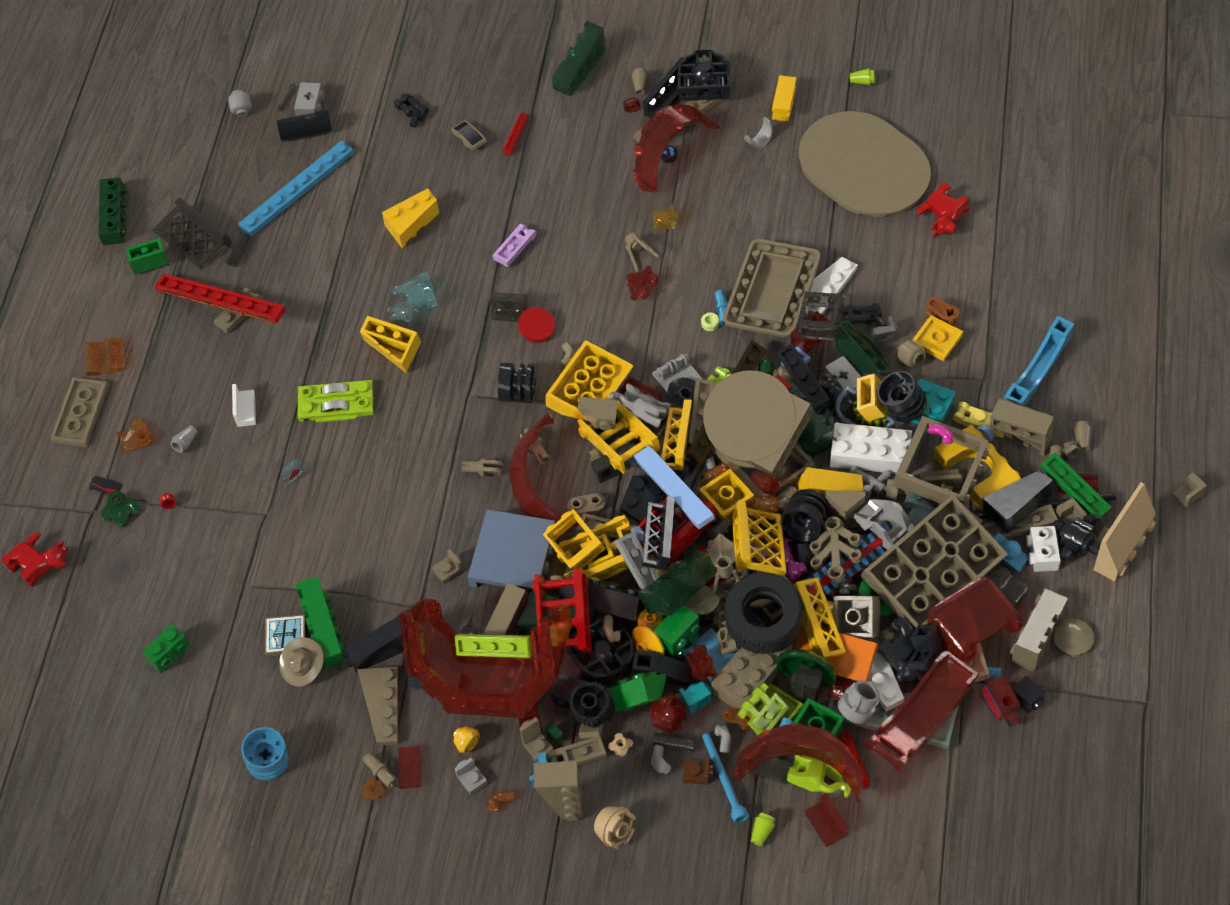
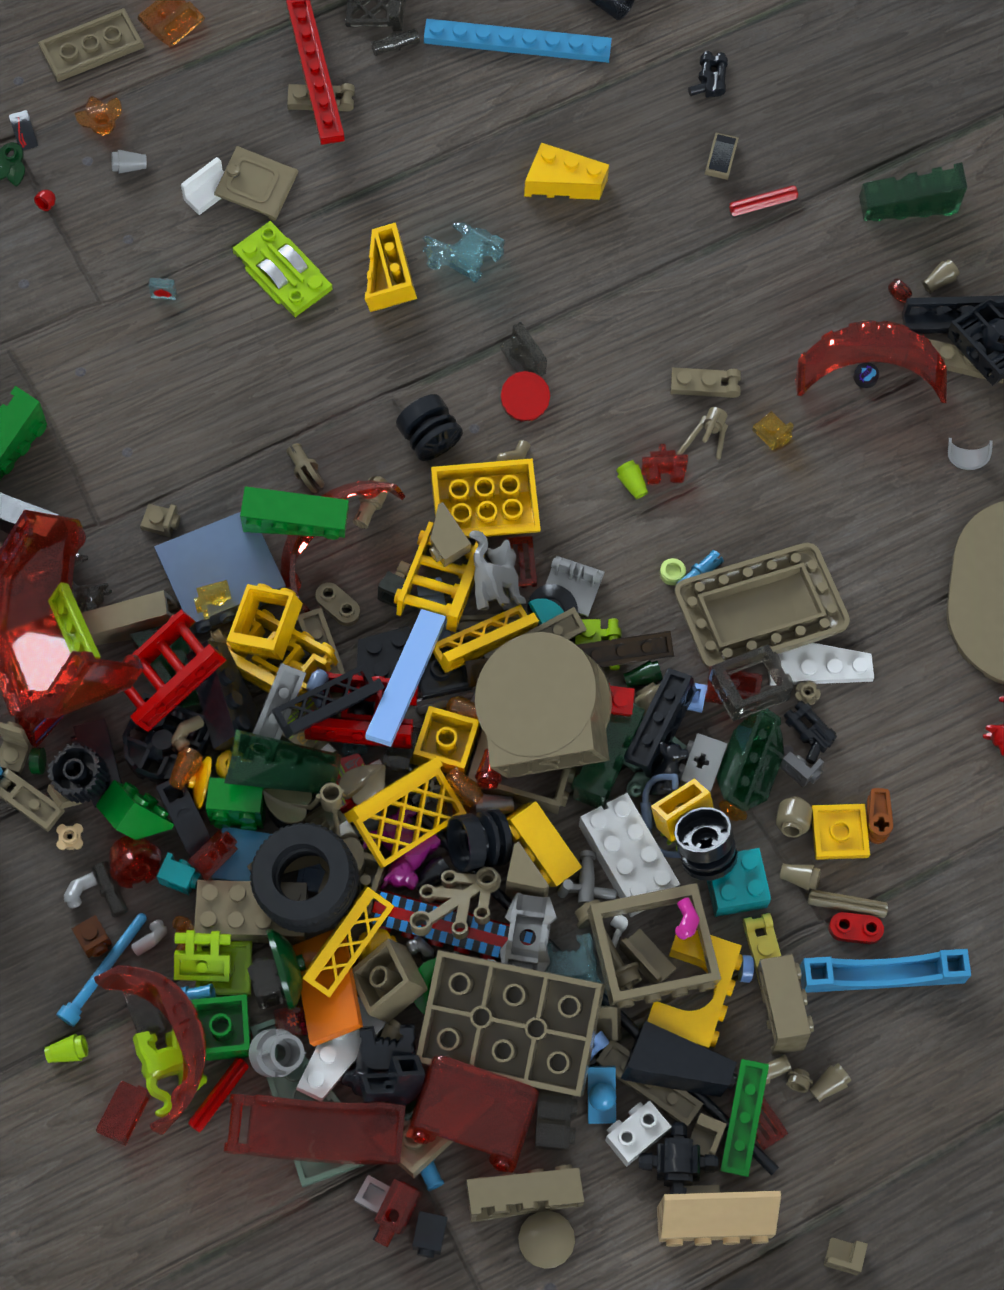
camera: 45 degrees right, 10 degrees up
(267, 377) = (261, 182): none -> dark tan container
(514, 245) = (613, 302): lavender plate -> none
(517, 481) = (293, 513): none -> green wedge
(531, 561) = (212, 594): none -> clear yellow bracket
(605, 232) = (705, 382): none -> dark tan plate
(633, 640) = (185, 767): none -> clear orange cone
(636, 304) = (632, 479): none -> lime cone
(684, 393) = (545, 609): none -> teal tile
(949, 372) = (801, 875): none -> dark tan cone
(981, 711) = (372, 1194): none -> light grey plate
(982, 362) = (847, 903): none -> dark tan axle
(1001, 366) = (856, 928): none -> red plate

